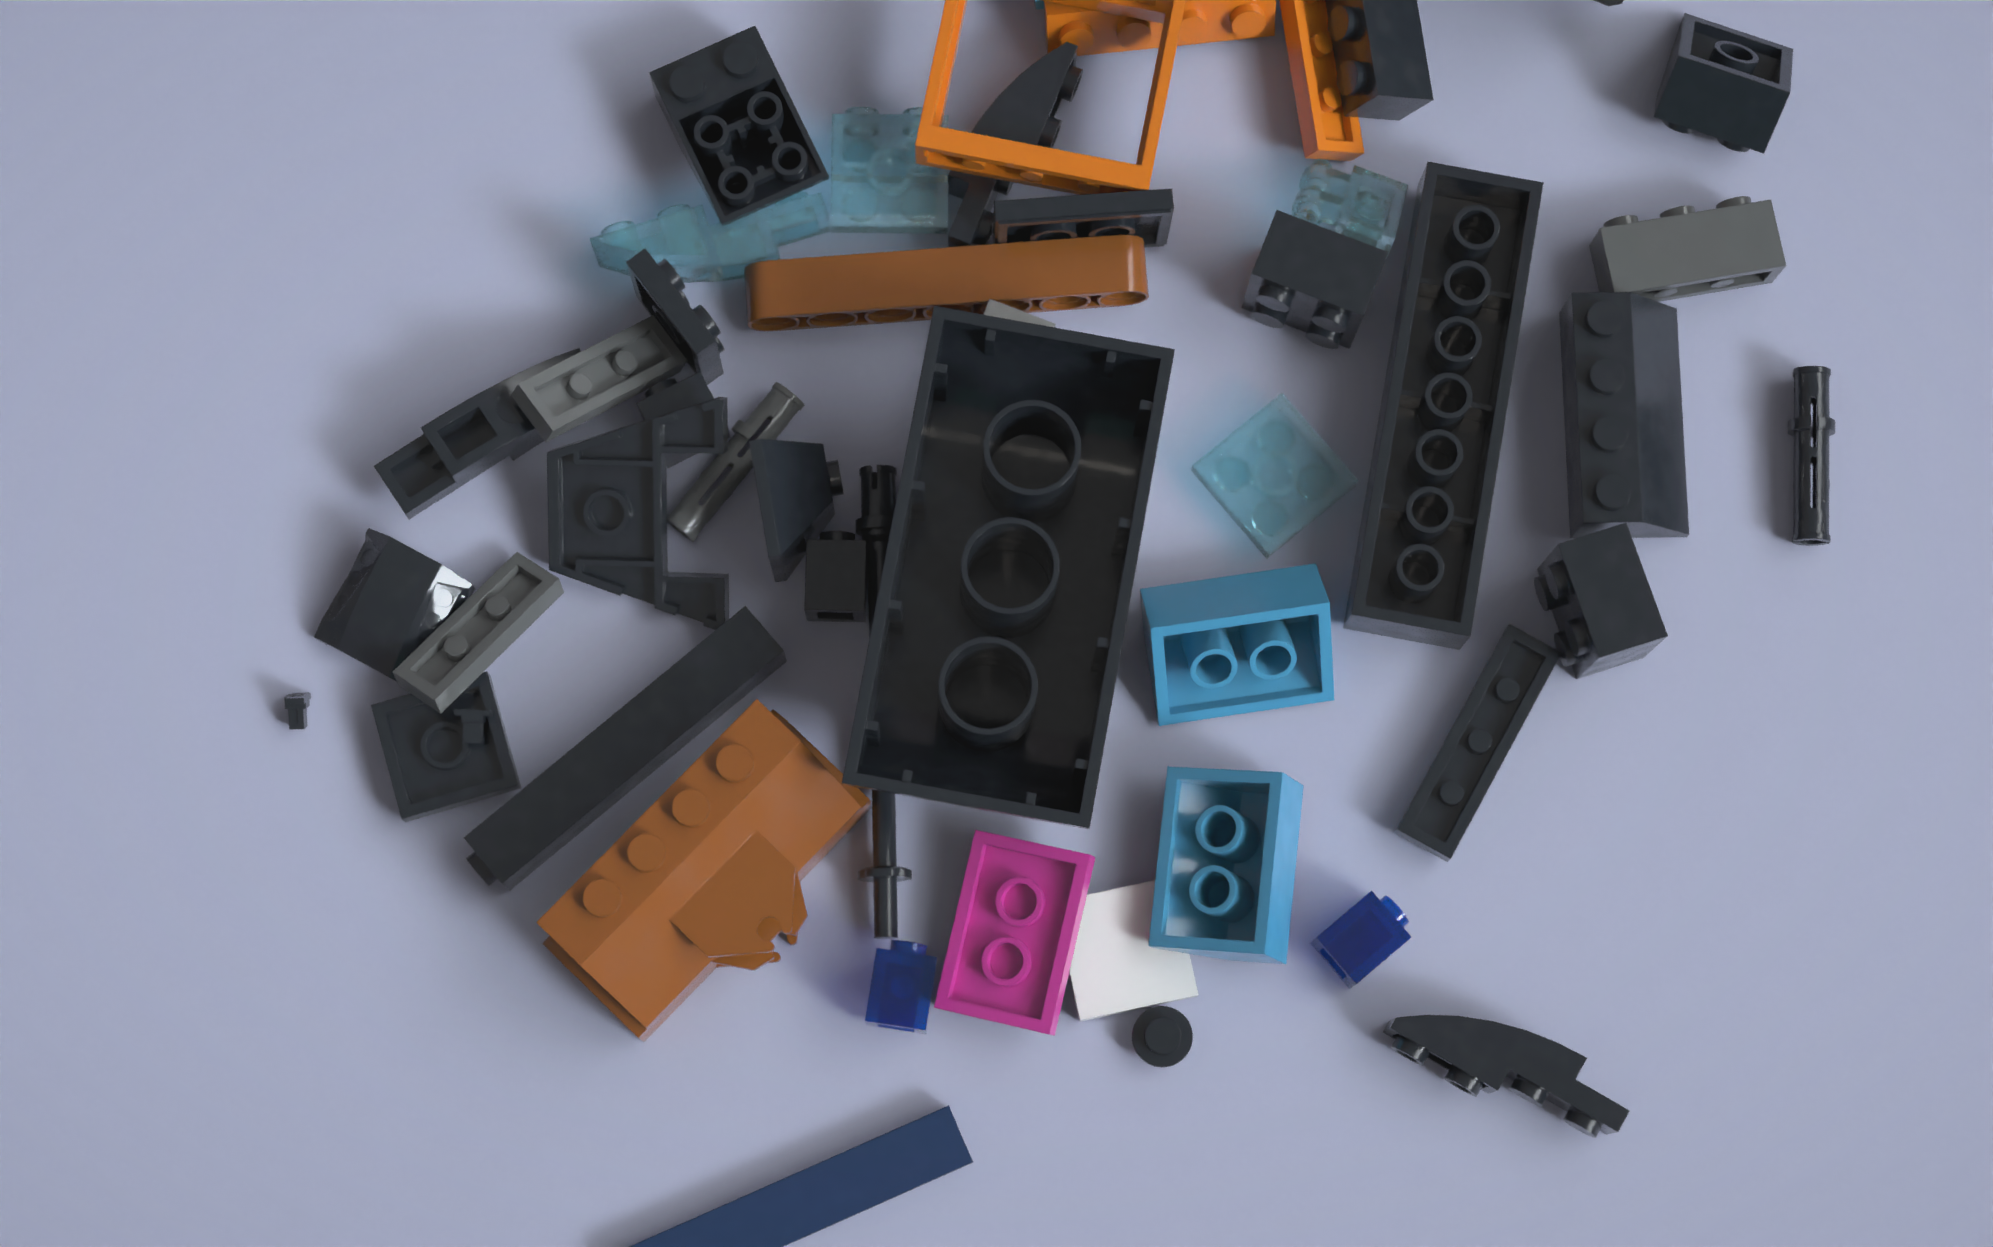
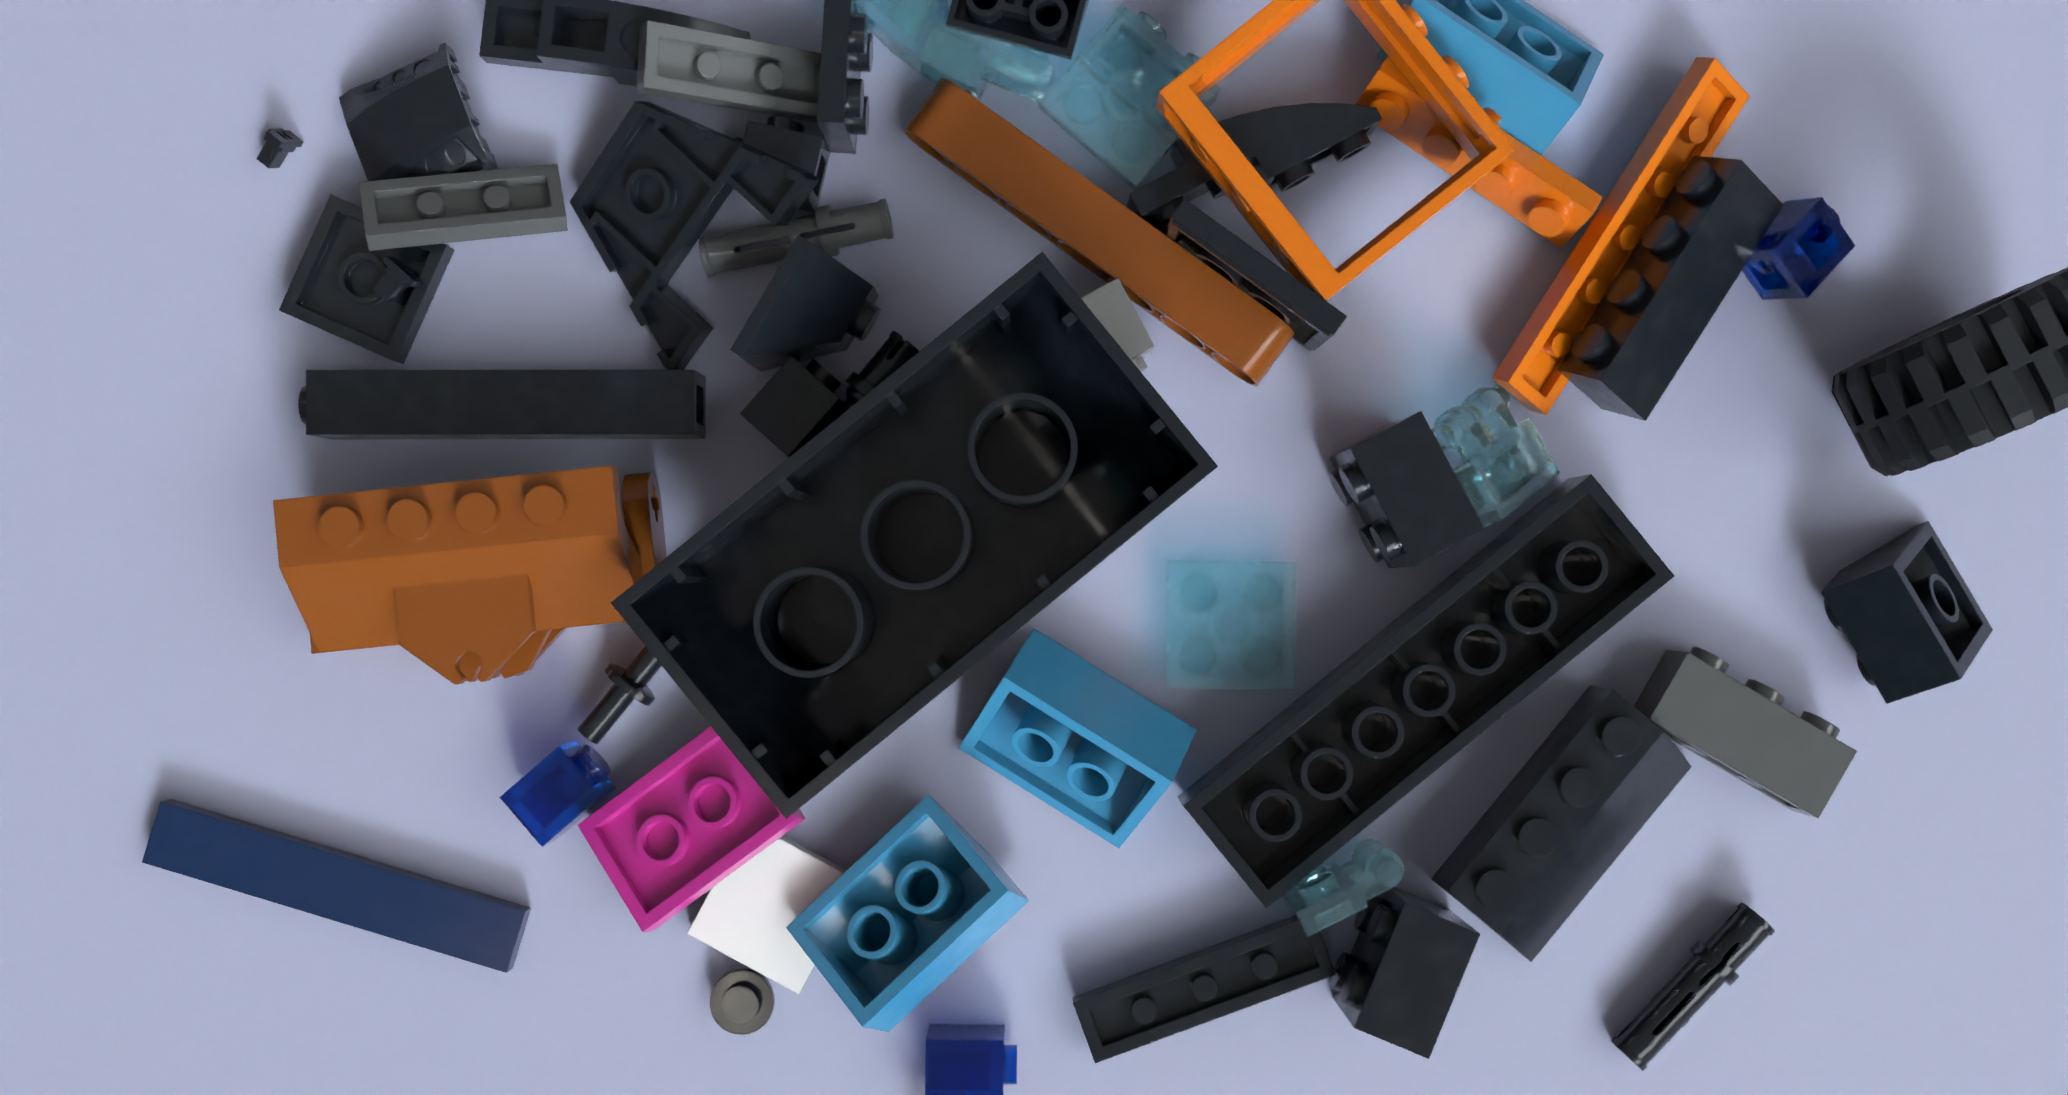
camera: 50 degrees right, 10 degrees up
(1504, 591) = (1342, 890): none -> clear light blue plate

